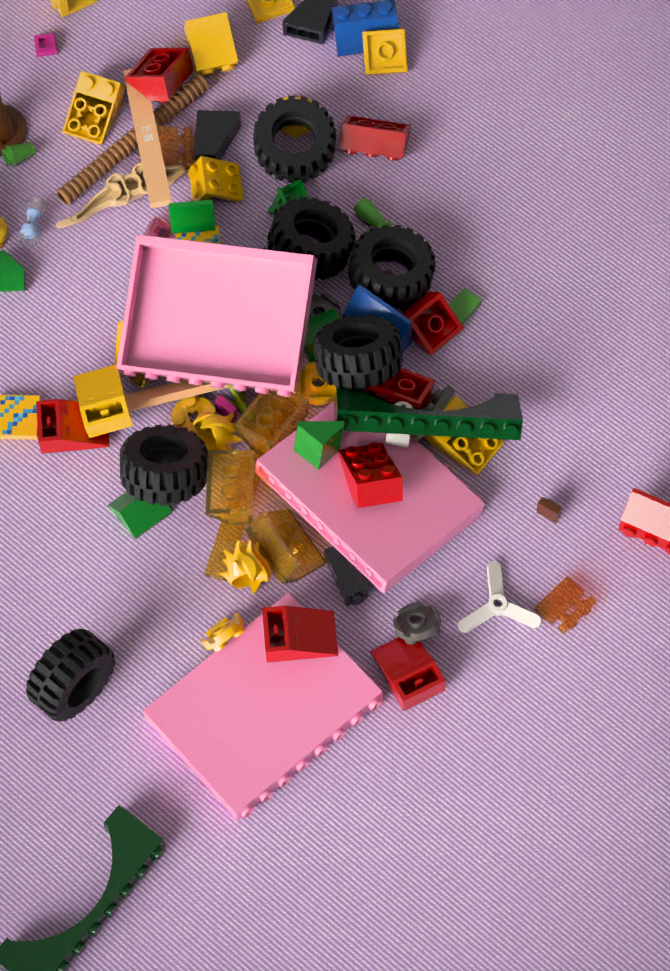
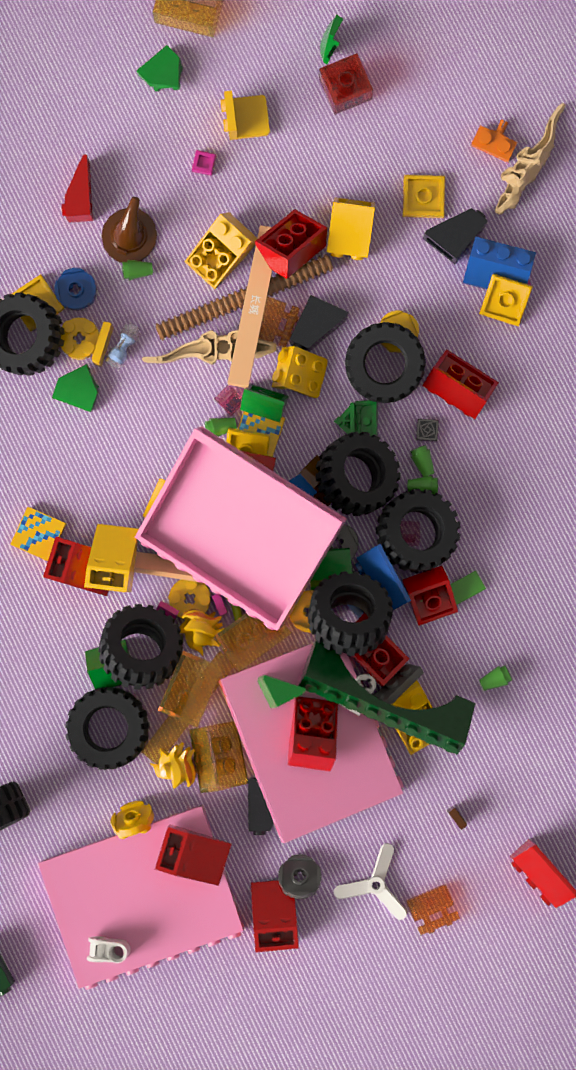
camera: 25 degrees right, 20 degrees up
(11, 226) = (102, 343): none -> yellow tile
(159, 531) = (78, 728): none -> black tyre
(249, 759) = (103, 949): none -> white piece
(361, 187) = (427, 430): none -> tile
(529, 372) = (496, 678): none -> bright green cone

